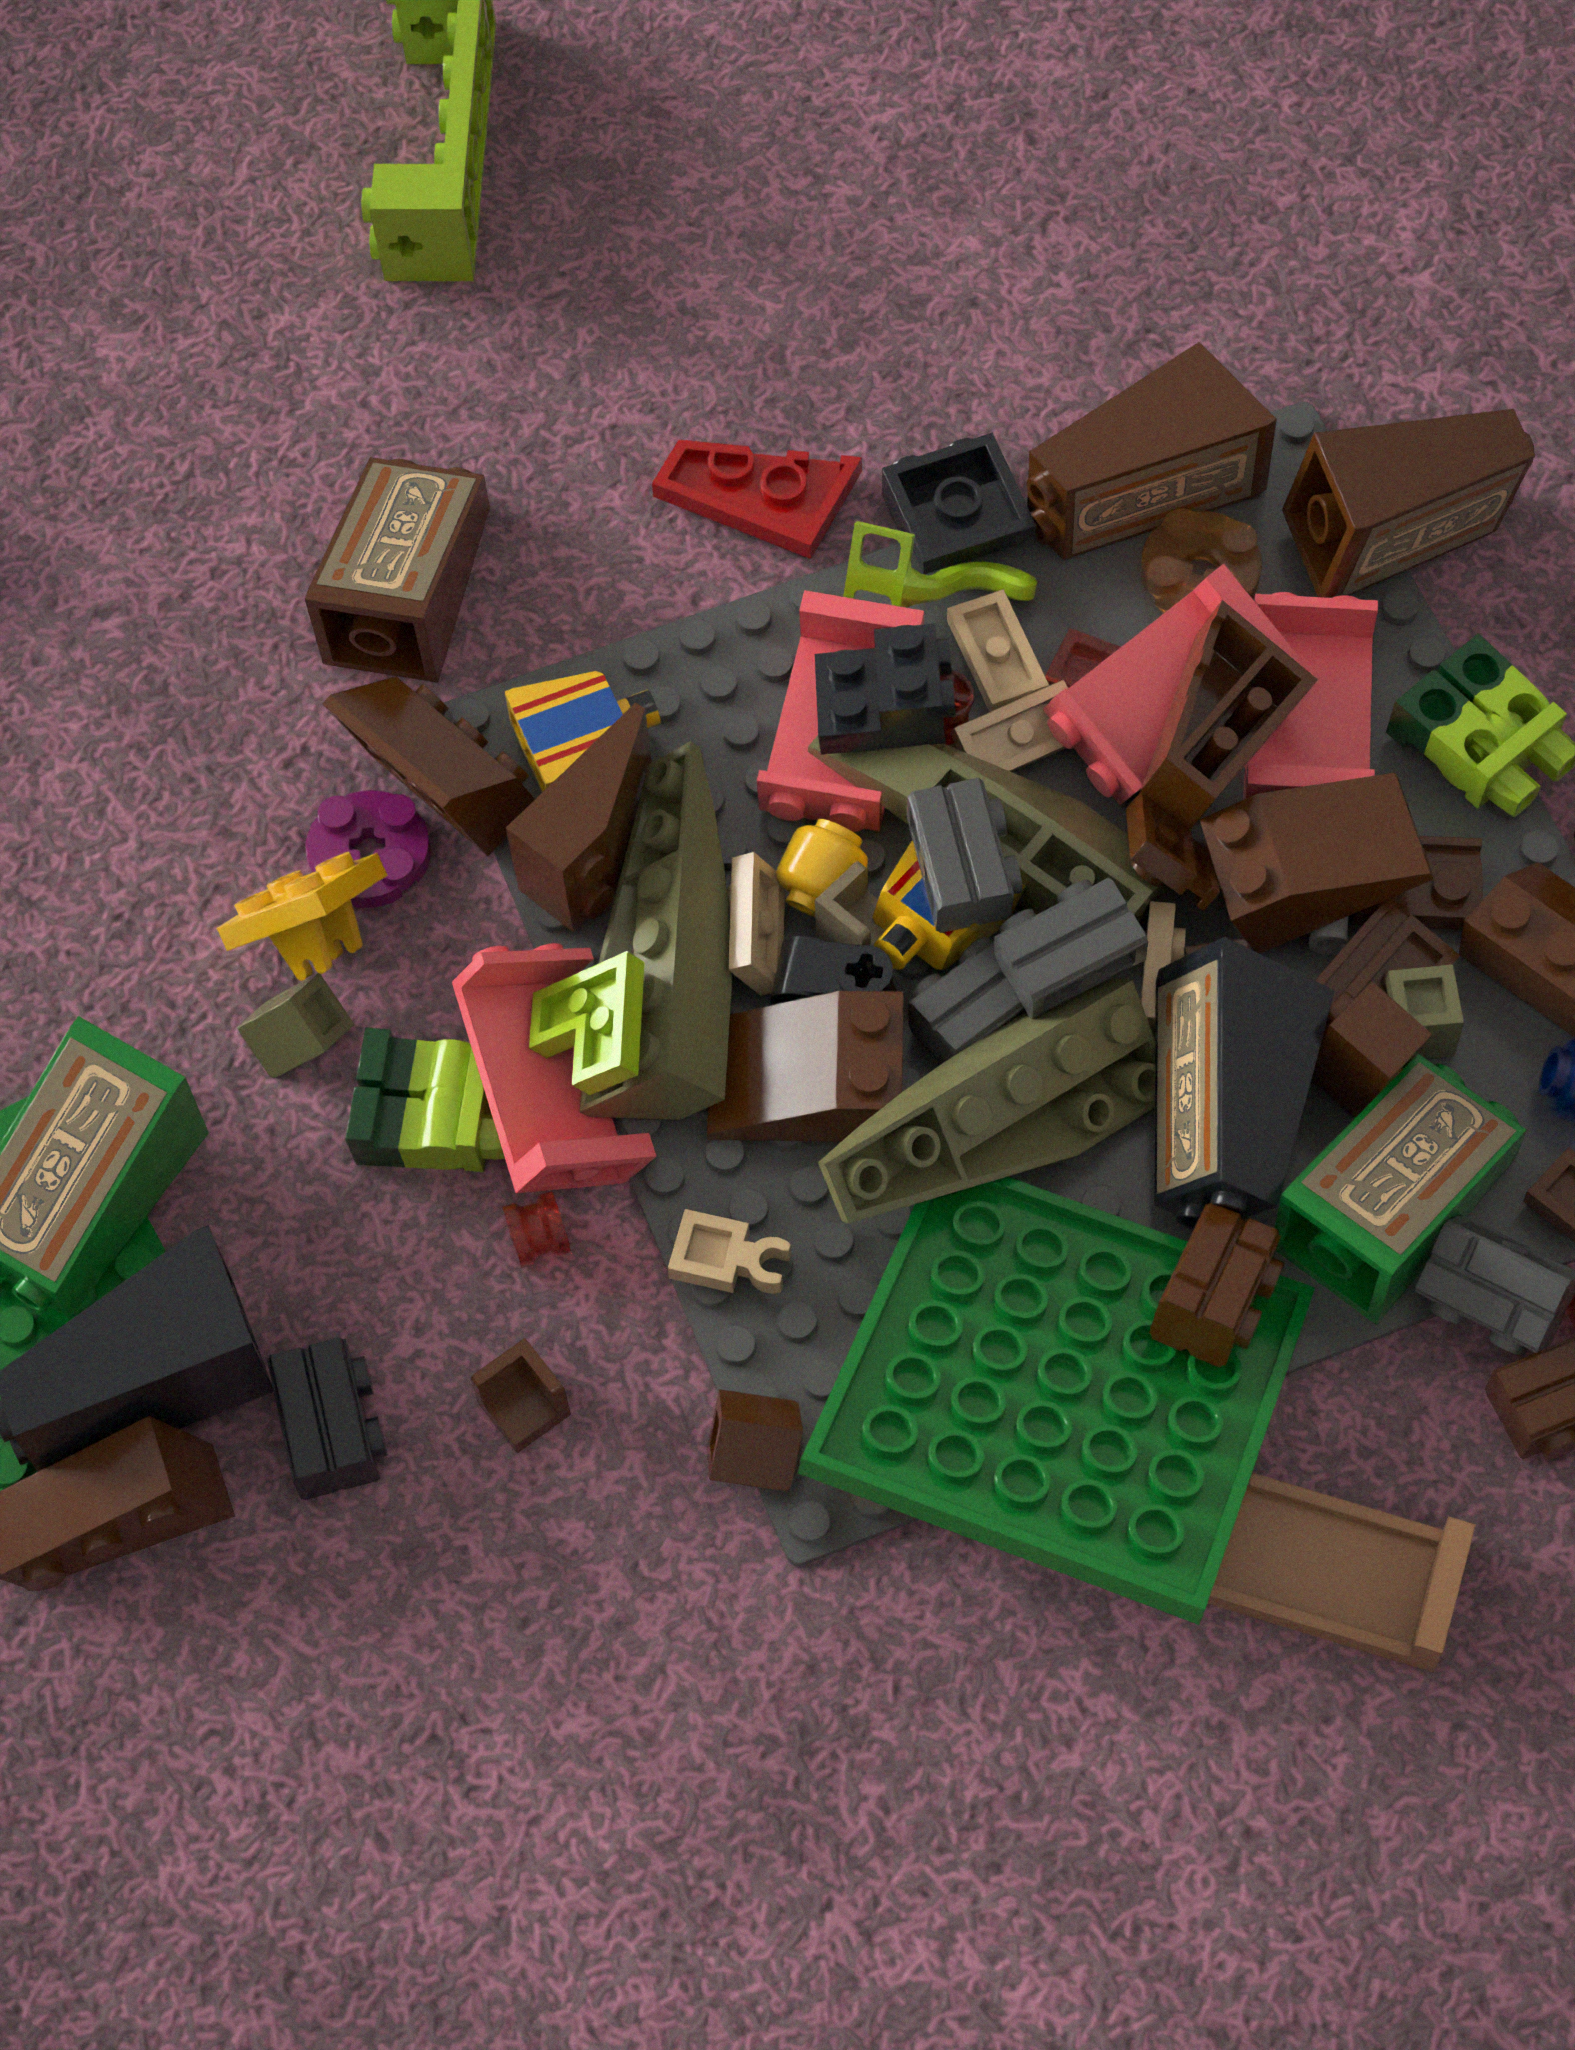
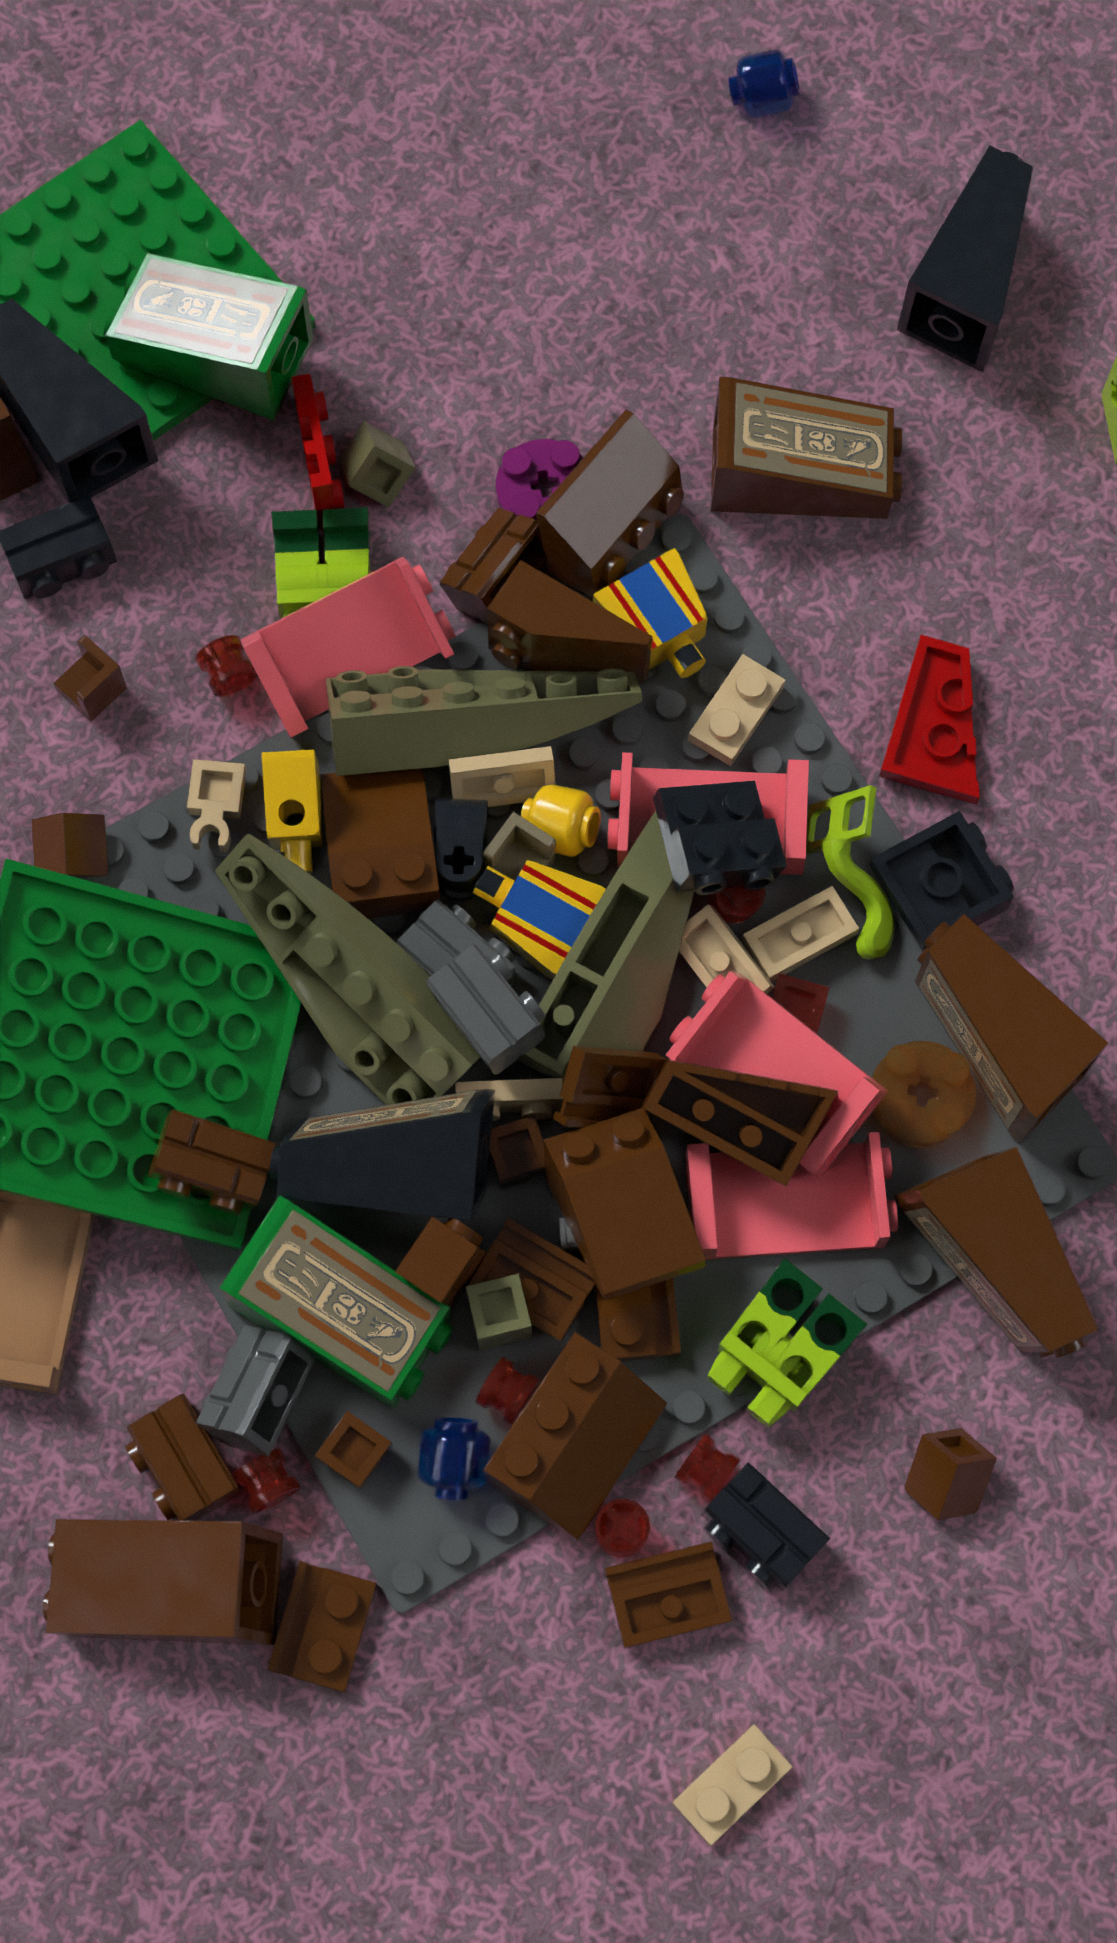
camera: 75 degrees right, 10 degrees up
(205, 350) = (966, 272): none -> black slope
(277, 1082) = (318, 449): none -> red wing
(307, 913) = (460, 438): yellow plate -> none
(469, 898) = (490, 560): none -> reddish brown brick
(598, 1017) = (386, 664): lime plate -> none
(709, 677) = (736, 710): none -> tan plate
(753, 1151) = (293, 788): none -> yellow torso
(962, 855) = (554, 911): dark grey brick -> none
(1514, 1018) = (507, 1390): none -> clear red wheel

